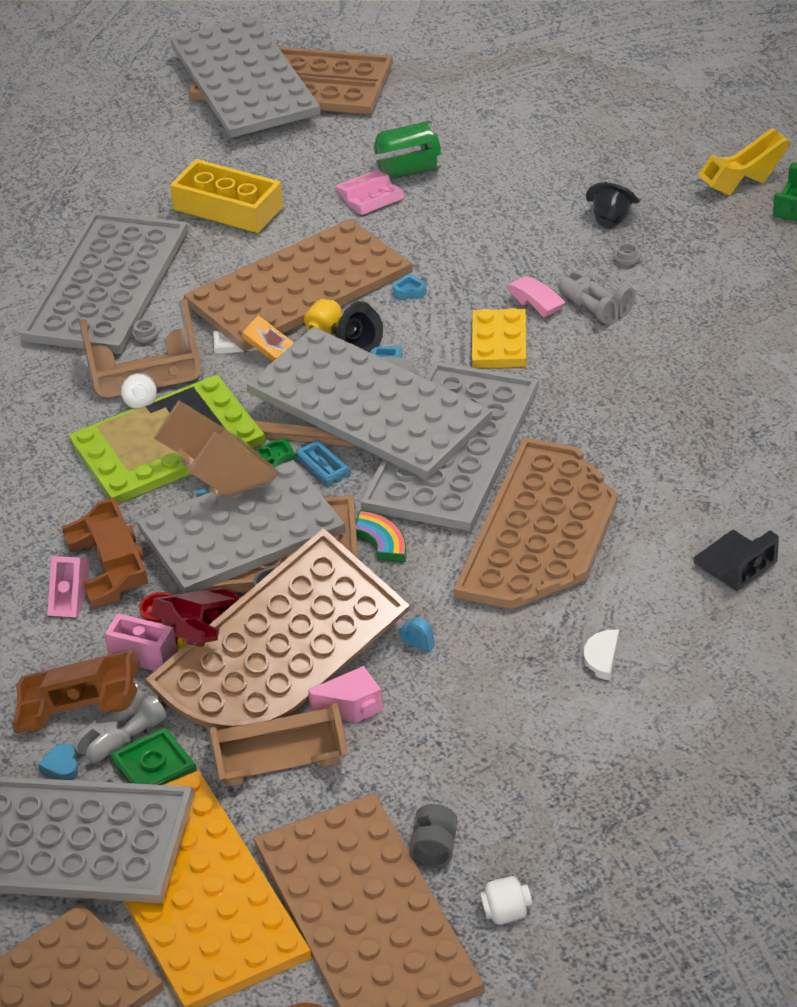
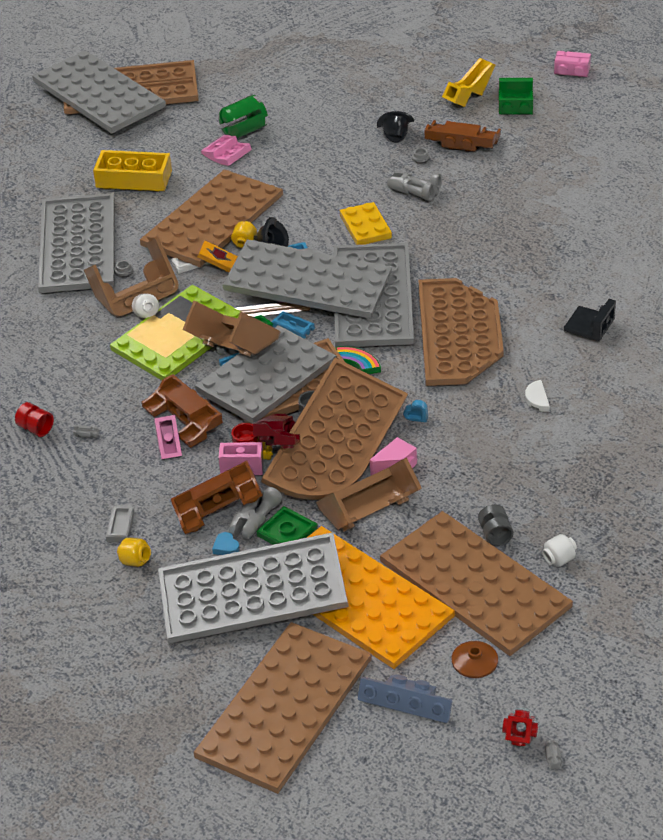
camera: 20 degrees left, 0 degrees up
(409, 287) = (288, 204): dark azure tile -> none
(540, 296) = (382, 193): bright pink slope -> none
(697, 237) = (461, 135): none -> dark orange bracket

